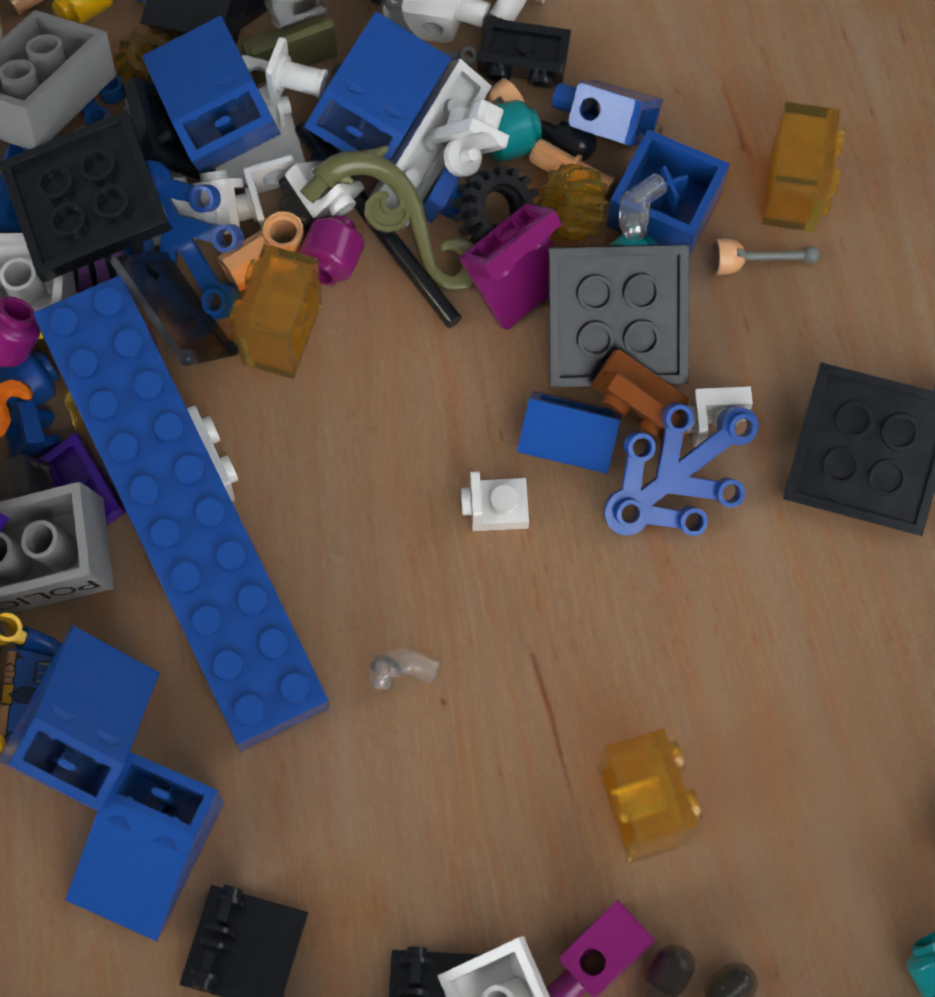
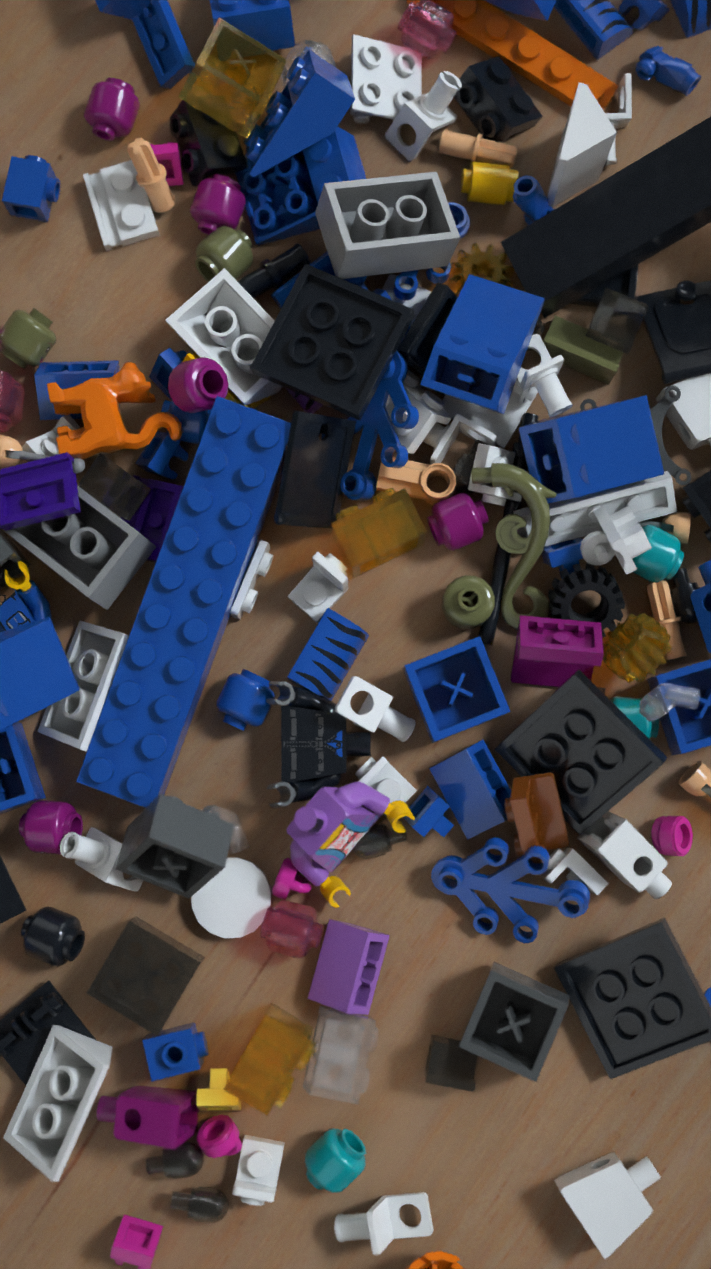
camera: 50 degrees right, 15 degrees up
(181, 701) = (94, 661): none -> white slope
(255, 816) = (47, 824): none -> magenta head
(274, 396) = (320, 586): none -> white bracket
(309, 548) = (245, 699): none -> blue head
(330, 791) = (99, 856): none -> white bracket
(338, 449) = (328, 655): none -> blue brick
(355, 904) = (52, 936): none -> black head
(380, 705) = (175, 846): none -> dark grey brick
(401, 522) = (312, 744): none -> torso
(406, 297) = (460, 614): none -> olive head
(423, 446) = (374, 711): none -> white bracket
(470, 367) = (456, 689): none -> blue brick
(471, 717) = (233, 900): none -> white tile
(471, 847) = (145, 975): none -> clear smoke brick
(492, 566) = (331, 828): none -> medium lavender torso
(500, 650) = (289, 880): none -> dark pink tile
(537, 549) = (378, 841): none -> clear smoke cylinder
(548, 683) = (291, 929): none -> clear pink head
(555, 483) = (428, 813): none -> blue tile
(563, 885) = (175, 1051): none -> blue brick
(626, 667) = (348, 967): none -> medium lavender brick
(640, 880) = (216, 1097): none -> light yellow tile
(680, 916) = (219, 1137): none -> dark pink tile
(708, 738) = (340, 1055): none -> clear brick
(738, 353) = (627, 854): none -> white torso
(739, 909) = (258, 1170): none -> white bracket
(757, 310) = (672, 835): none -> dark pink tile
(790, 656) = (450, 1064): none -> clear smoke panel
(791, 828) = (335, 1160): none -> teal head
(801, 562) = (515, 1021): none -> dark grey brick
(884, 837) = (383, 1222): none -> white bracket

